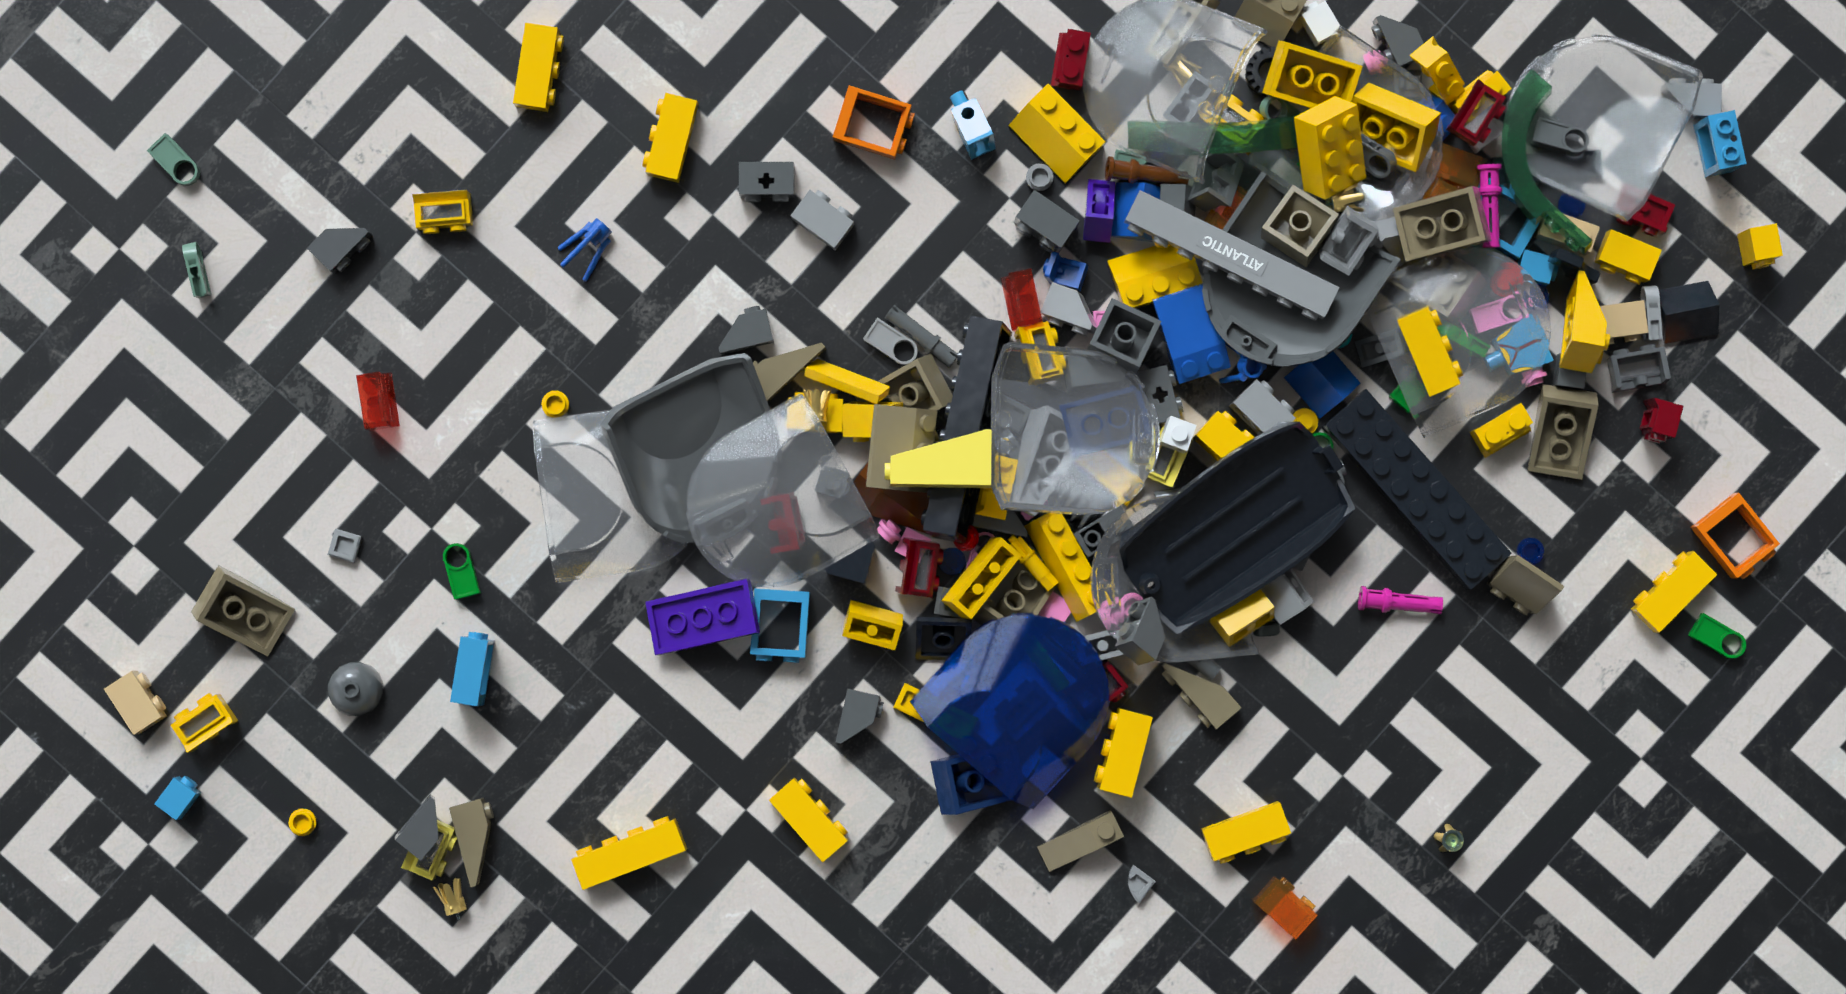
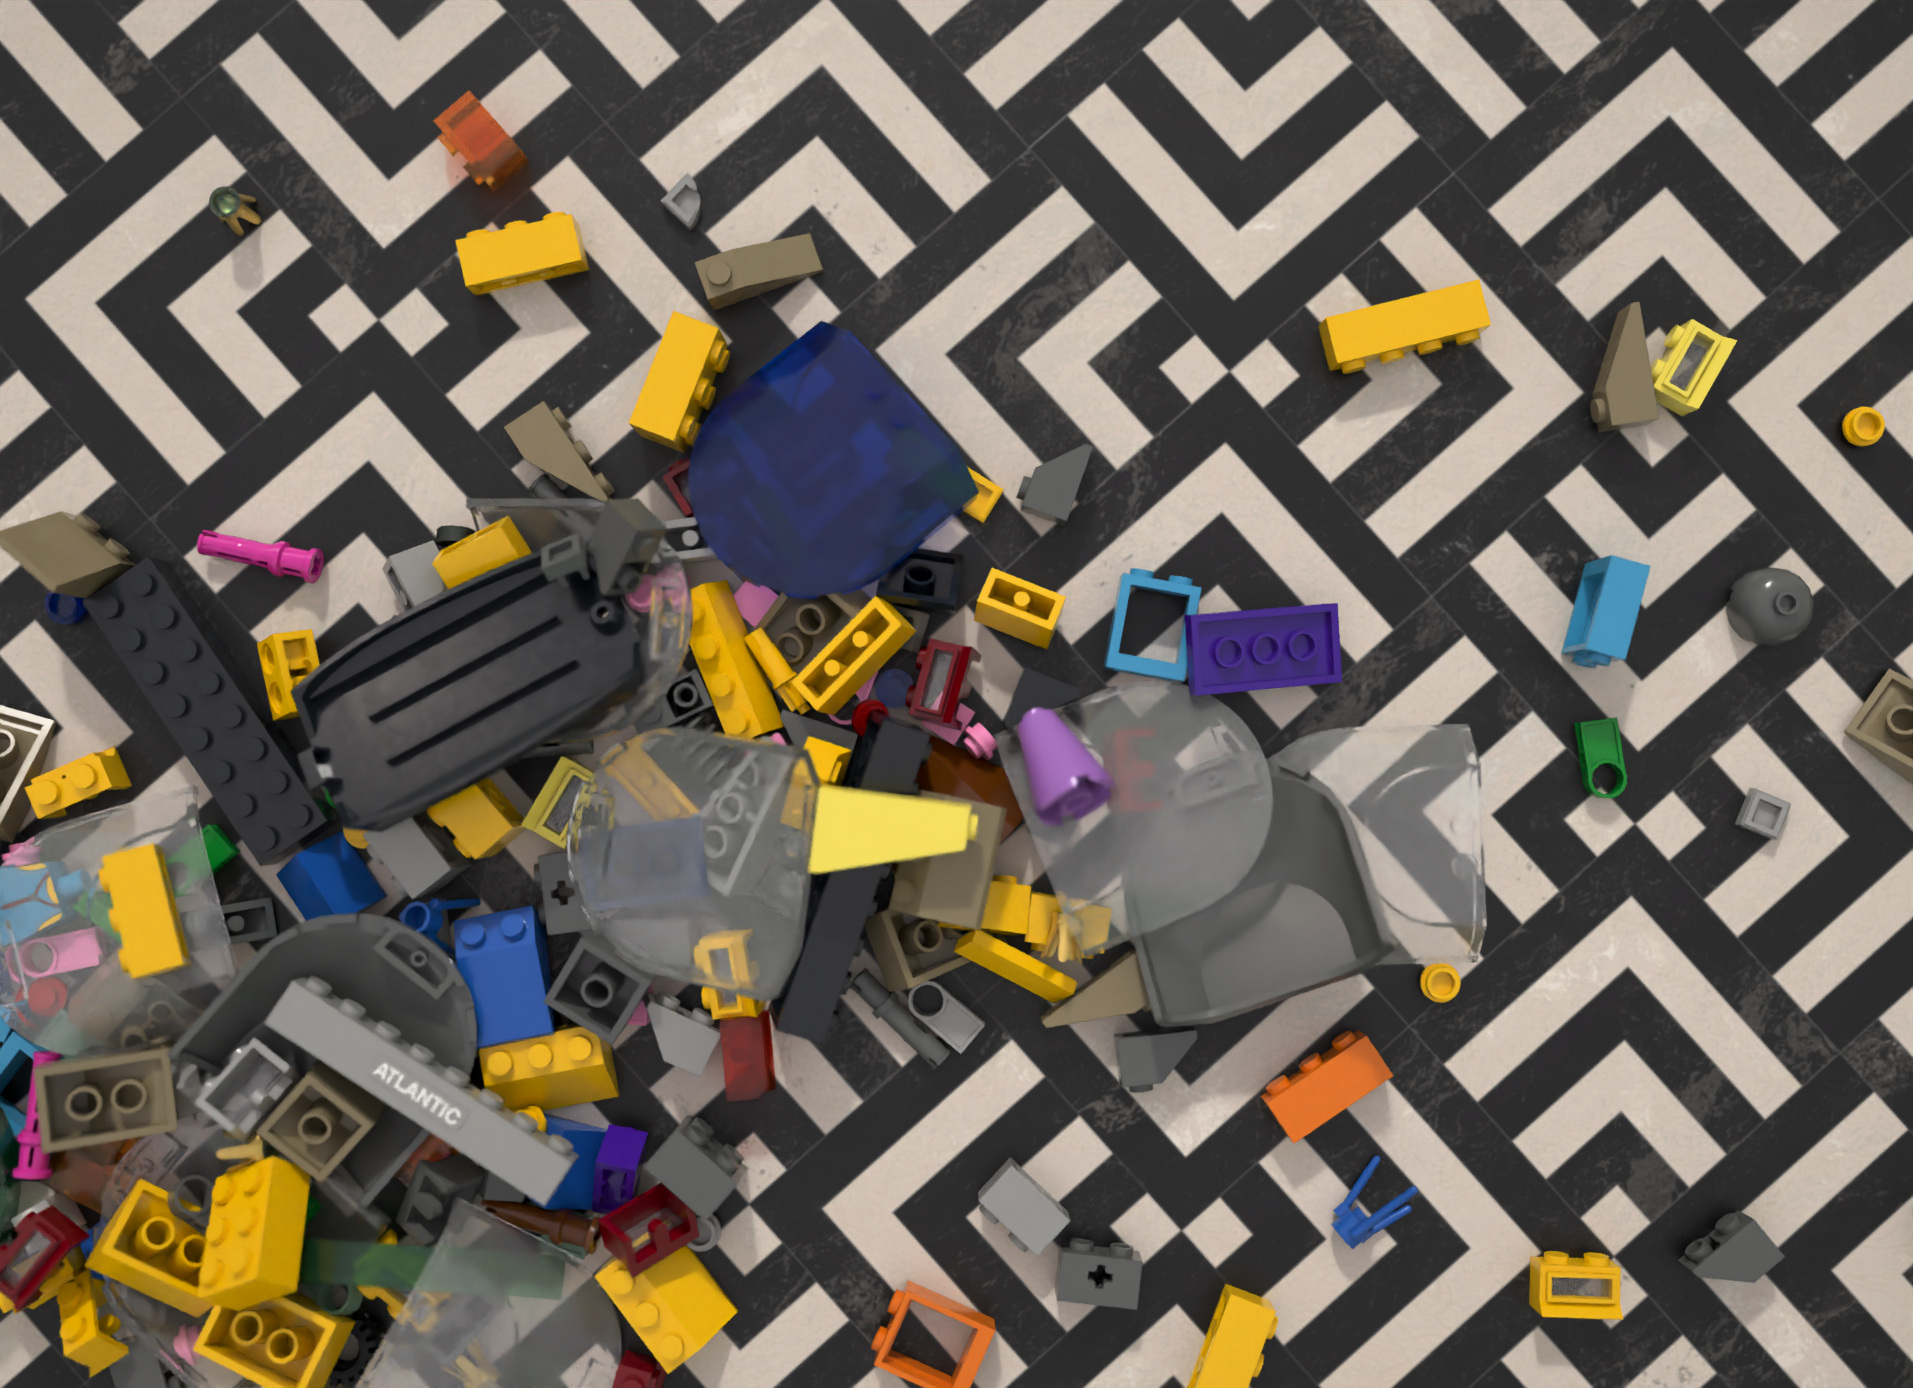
camera: 175 degrees left, 0 degrees up
(377, 401) = (1699, 1018): clear red window -> none
(421, 830) = (1706, 385): dark grey slope -> none
(452, 902) = (1664, 283): pearl gold piece -> none
(626, 326) = (1326, 1084): none -> orange brick
(809, 818) = (1141, 344): yellow brick -> none
(833, 516) = (1060, 769): none -> medium lavender cone
(962, 787) = (920, 361): dark blue slope -> none
(972, 125) = (788, 1320): torso -> none
(1065, 271) = (679, 1089): blue bracket -> none
(1072, 178) = (648, 1229): none -> dark red window
(1177, 434) = (540, 831): white brick -> none
(1181, 619) = (564, 558): none -> dark grey tile
(1367, 523) = (285, 662): none -> yellow brick

